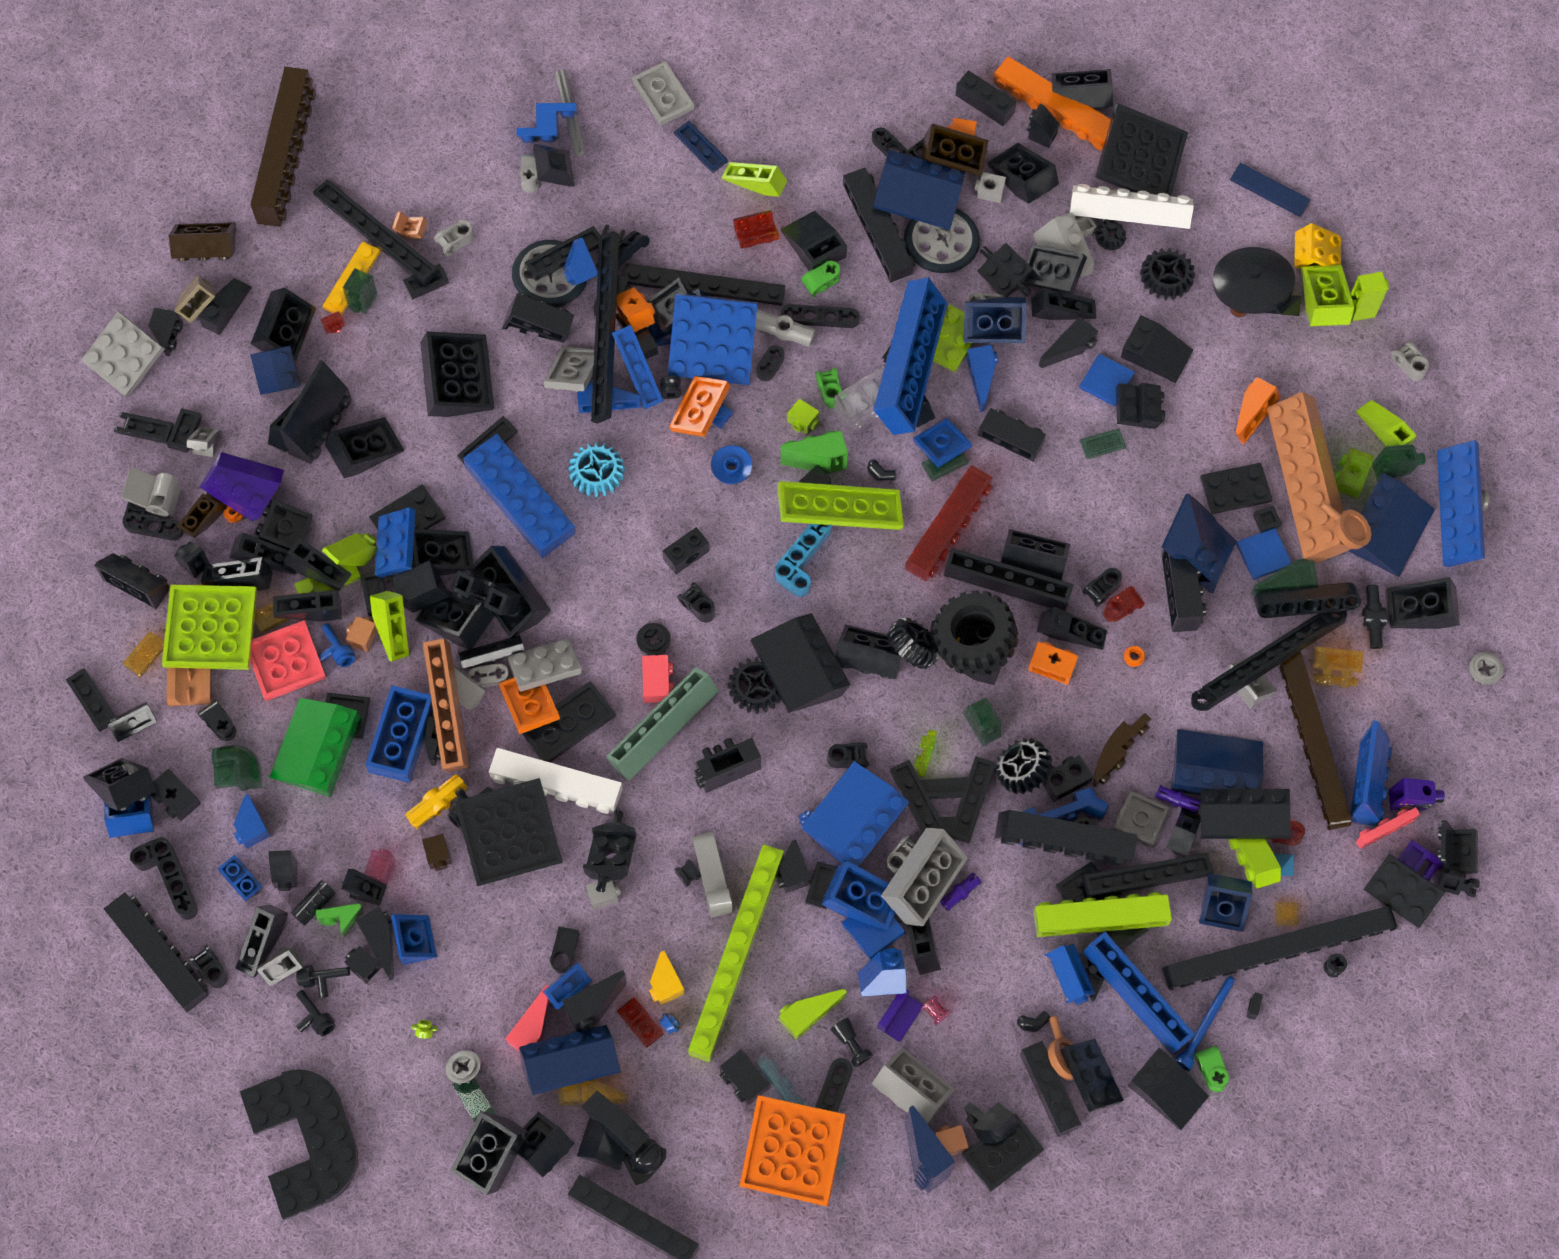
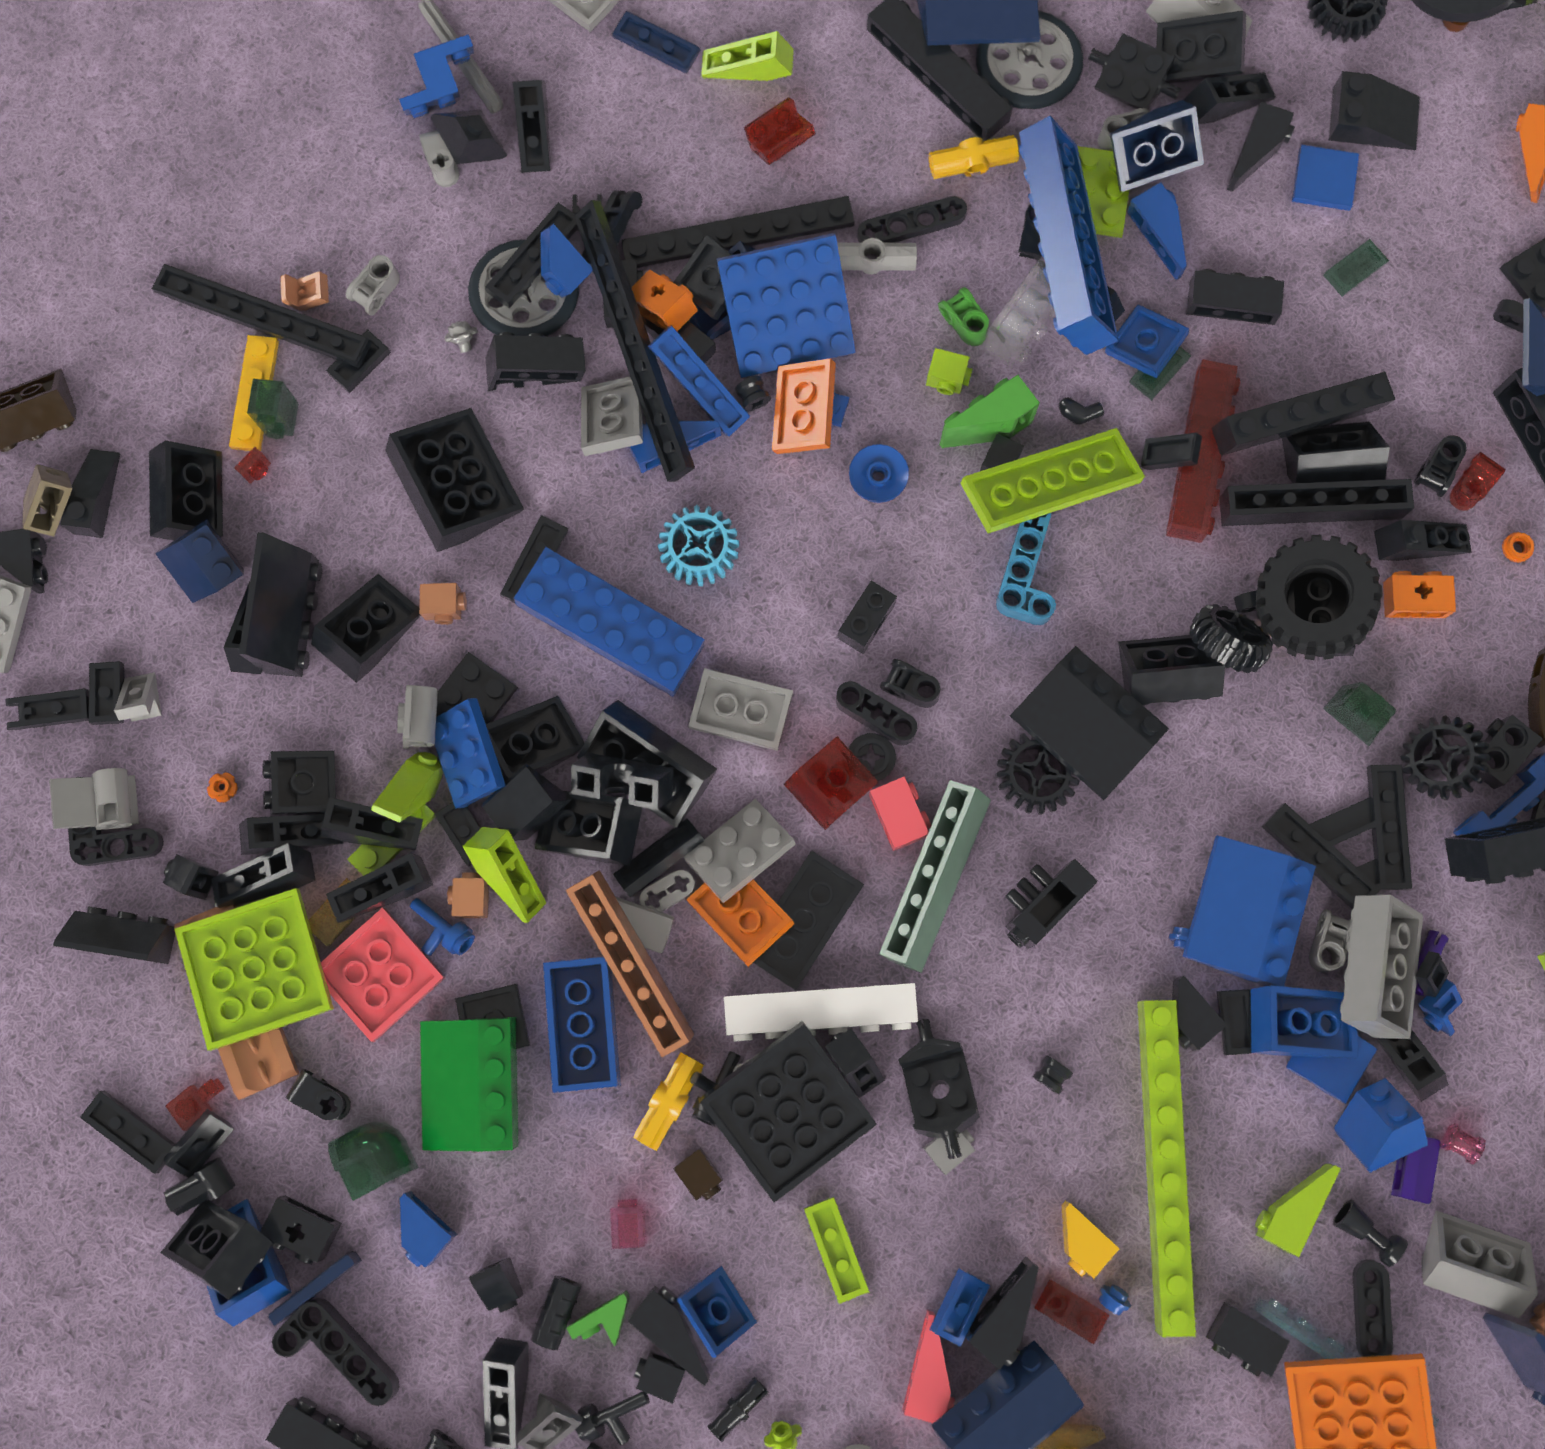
camera: 15 degrees left, 10 degrees up
(125, 747) = (206, 1183): none -> black piece
(137, 696) = (193, 1102): none -> clear red plate
(144, 654) = (177, 1038): clear yellow plate -> none
(171, 832) = (314, 1287): none -> dark blue tile
(202, 515) = (188, 787): dark brown slope -> none
(239, 878) = (439, 1312): blue slope -> none
(242, 484) = (218, 744): dark purple wedge -> none
(282, 147) = (83, 238): dark brown brick -> none
(363, 887) = (618, 1265): black slope -> none
(373, 508) = (418, 716): none -> light grey piece
(403, 1002) = (737, 1409): none -> black pin
(418, 447) = (442, 602): none -> nougat brick
(431, 743) = (630, 1024): black slope -> none
(498, 286) = (461, 334): none -> light grey plant
(505, 929) = (836, 1250): none -> lime plate
(563, 819) = (854, 1062): none -> black slope
(566, 944) = (925, 1238): black piece -> none
(581, 580) = (740, 709): none -> light grey plate
(597, 172) = (532, 125): none -> black slope
(619, 643) = (830, 782): none -> clear red slope
(657, 608) = (874, 702): none -> black beam
(712, 874) = (1088, 1066): light grey beam -> none
(774, 365) = (865, 310): black beam -> none
(815, 240) = (865, 120): black slope -> none
(820, 279) = (892, 170): bright green piece -> none
(849, 753) = (1204, 826): black piece -> none
(876, 287) = (973, 156): none -> yellow piece
(926, 515) = (1171, 451): none -> black tile
(927, 744) = (1301, 772): clear neon green plate -> none
(957, 895) = (1432, 974): none -> black tile
(957, 920) = (1440, 1007): none -> blue bracket
(1022, 520) = (1302, 413): none -> black brick
(1140, 405) = (1386, 197): black plate -> none

